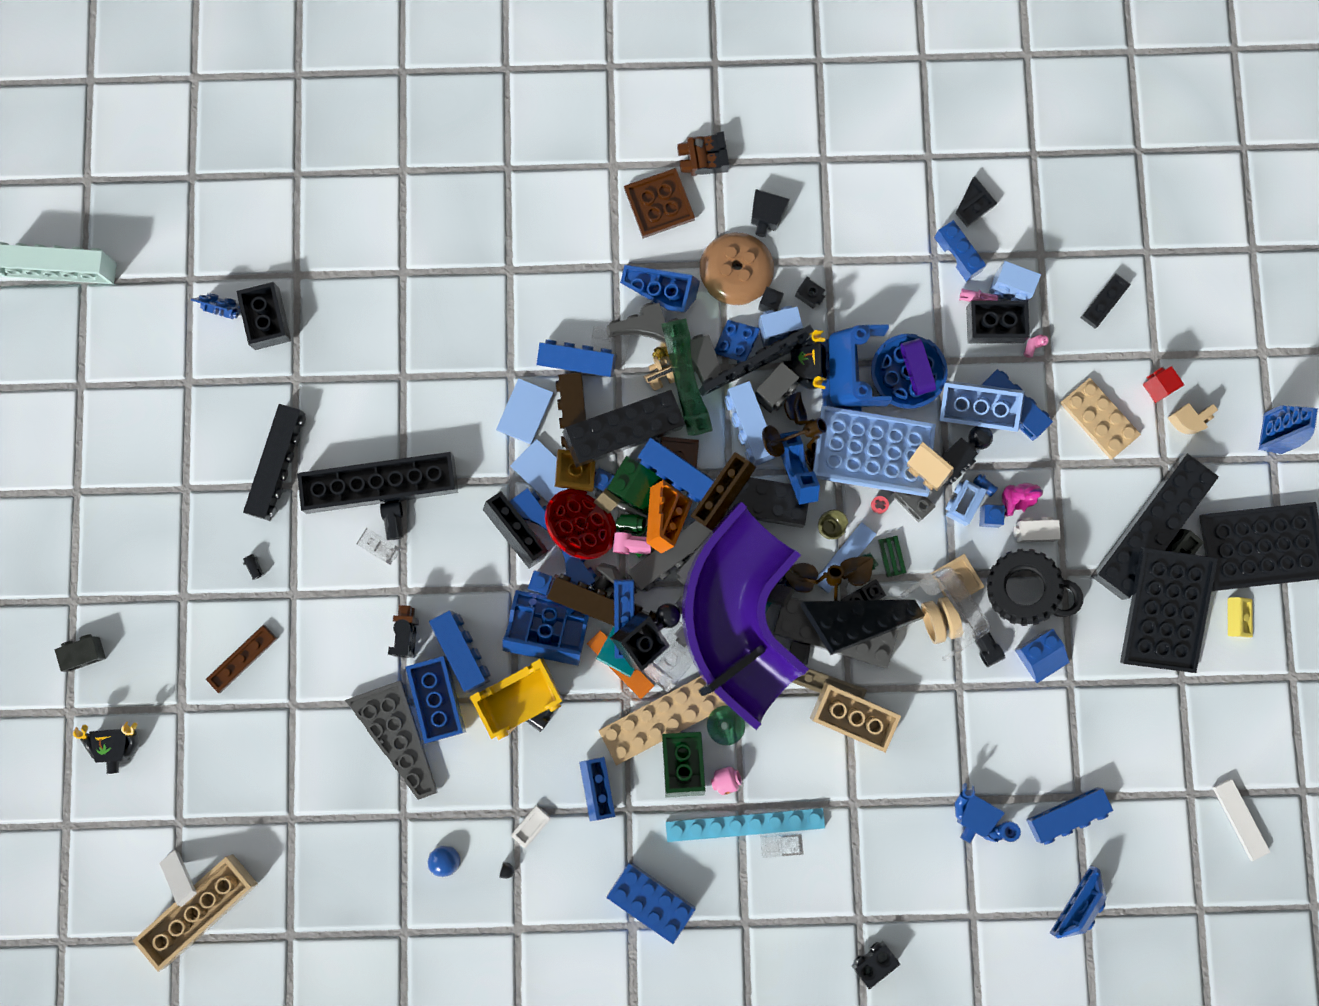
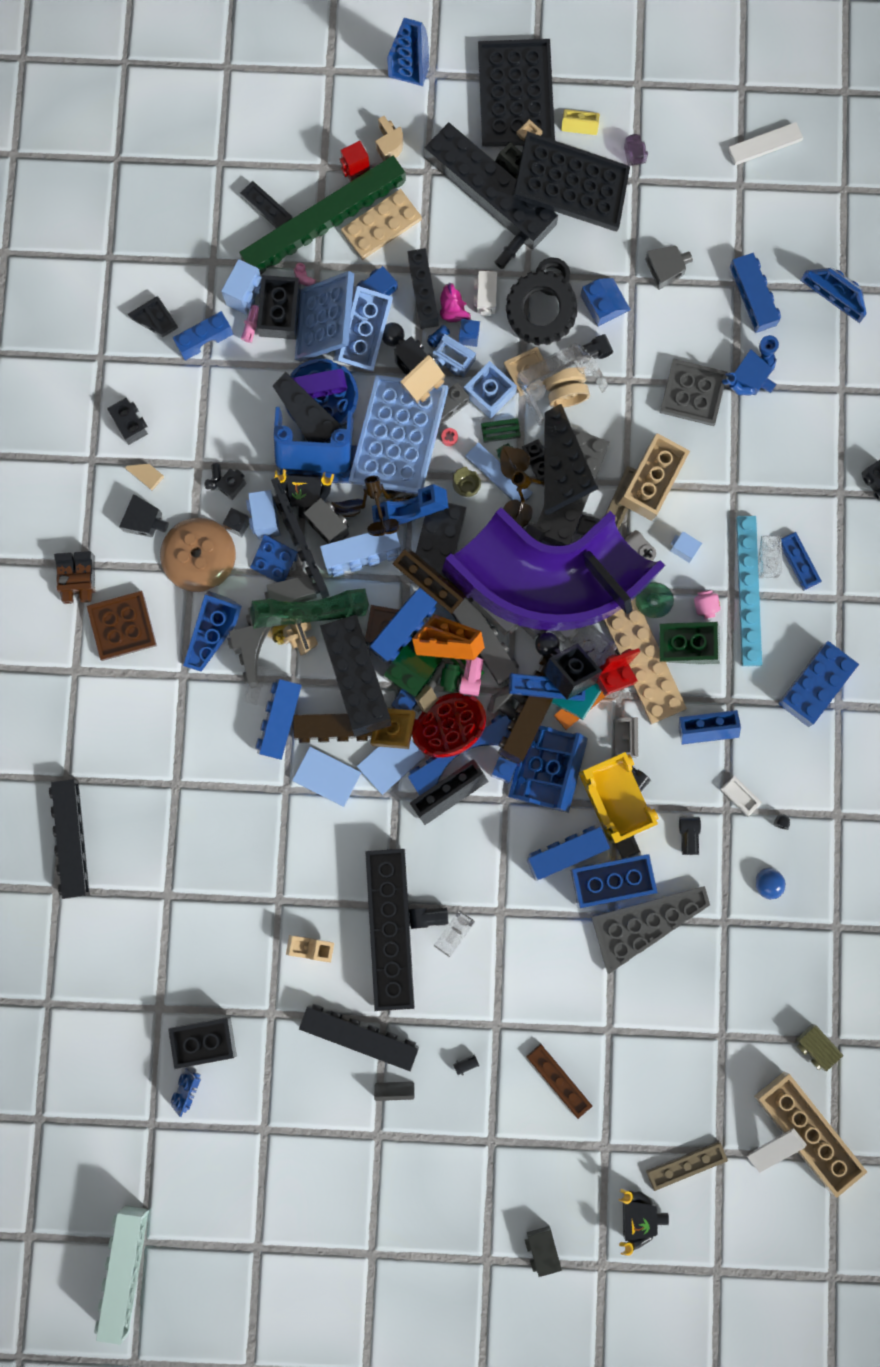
camera: 85 degrees left, 0 degrees up
(164, 790) = (686, 1165): none -> dark tan tile
(225, 500) = (394, 1091): none -> dark grey slope
(281, 918) = (818, 1047): none -> olive brick
(357, 409) = (310, 948): none -> tan brick
(405, 633) = (545, 907): black hips -> none
(449, 176) = (69, 838): none -> black brick
(470, 714) = (627, 847): none -> black tile
(489, 775) = (690, 829): none -> black piece
(582, 704) = (626, 736): none -> light grey hinge
(645, 690) = (617, 673): none -> red bracket
(781, 877) = (800, 561): none -> blue tile
(782, 705) = (641, 545): none -> light grey piece
(785, 754) = (685, 546): none -> light blue brick
(812, 212) = (146, 474): none -> tan tile
(817, 278) = (216, 476): none -> black arm
(862, 185) = (125, 422): none -> black brick
(886, 357) = (308, 414): none -> black wing
(932, 541) = (490, 389): none -> light blue brick
(952, 754) = (693, 392): none -> dark grey plate
(990, 366) = (324, 316): none -> medium blue plate
(1034, 465) = (423, 288): none -> black brick
(1085, 552) = (509, 252): none -> black axle
(1090, 719) = (667, 264): none -> dark grey torso
(1101, 359) = (324, 215): none -> dark green brick
(1214, 677) = (635, 150): none -> clear purple brick
(1223, 562) = (530, 127): none -> tan tile

